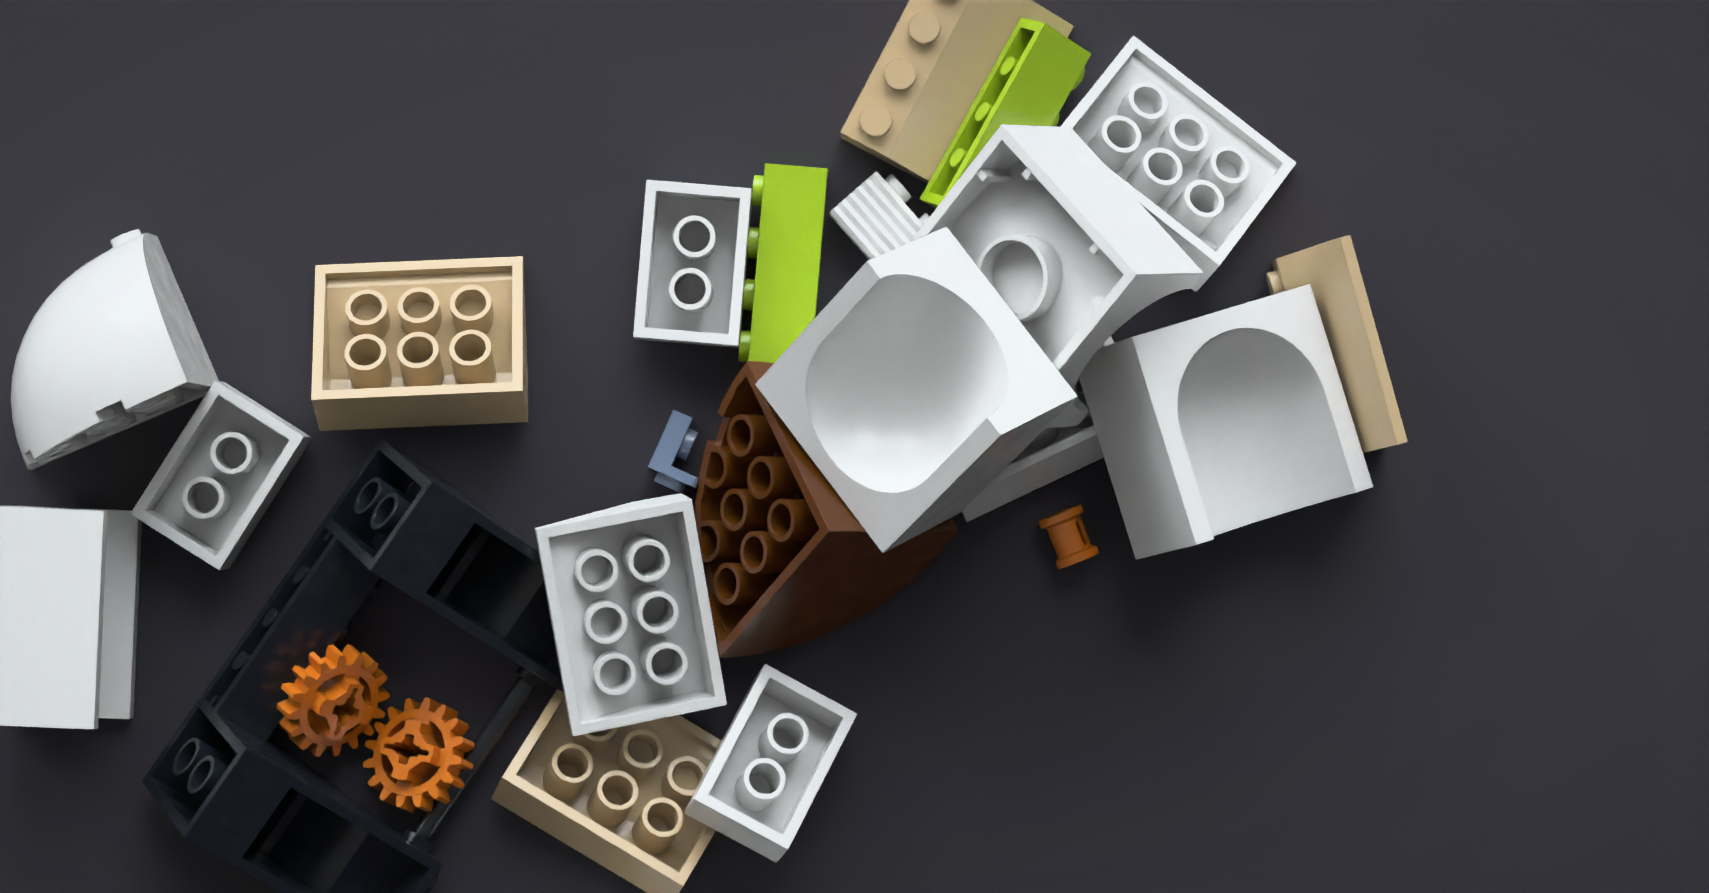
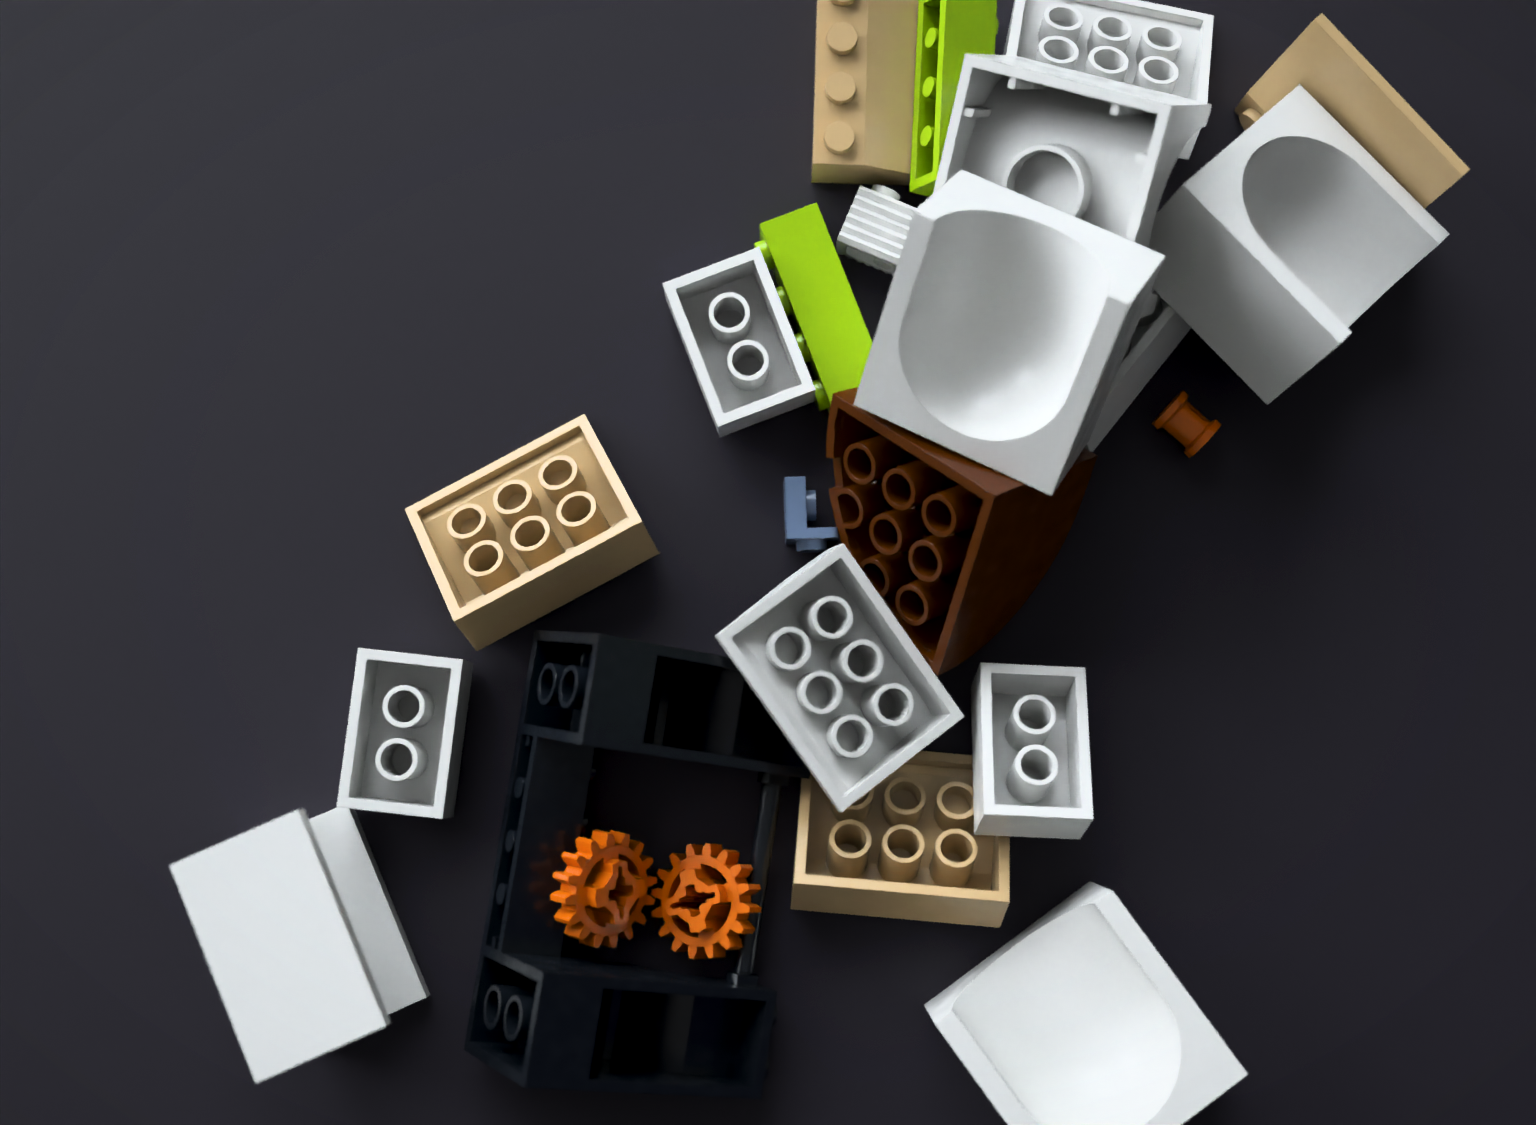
camera: 20 degrees left, 5 degrees down
(106, 353) = (249, 675): white brick -> none

